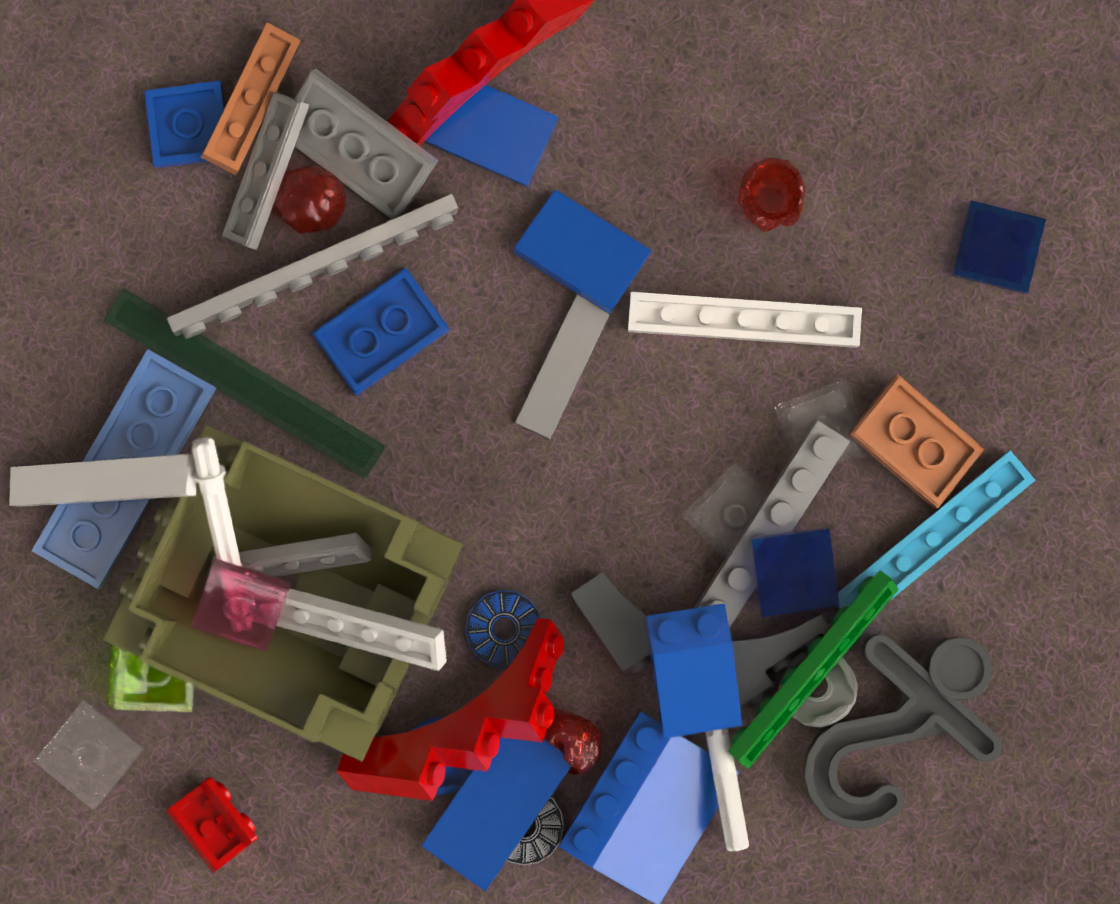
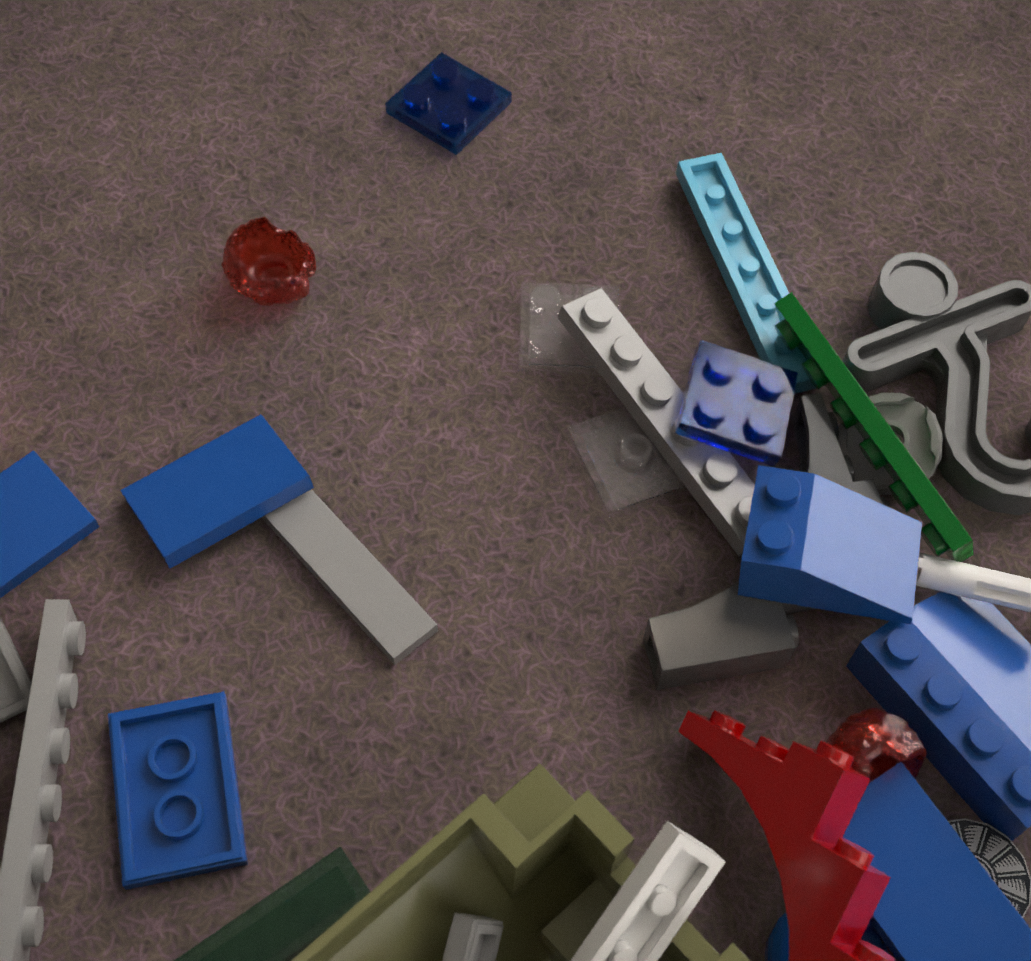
camera: 75 degrees left, 25 degrees down
(482, 619) = (678, 759): tile -> none
(744, 319) = (395, 359): white plate -> none
(915, 441) = (627, 242): nougat tile -> none

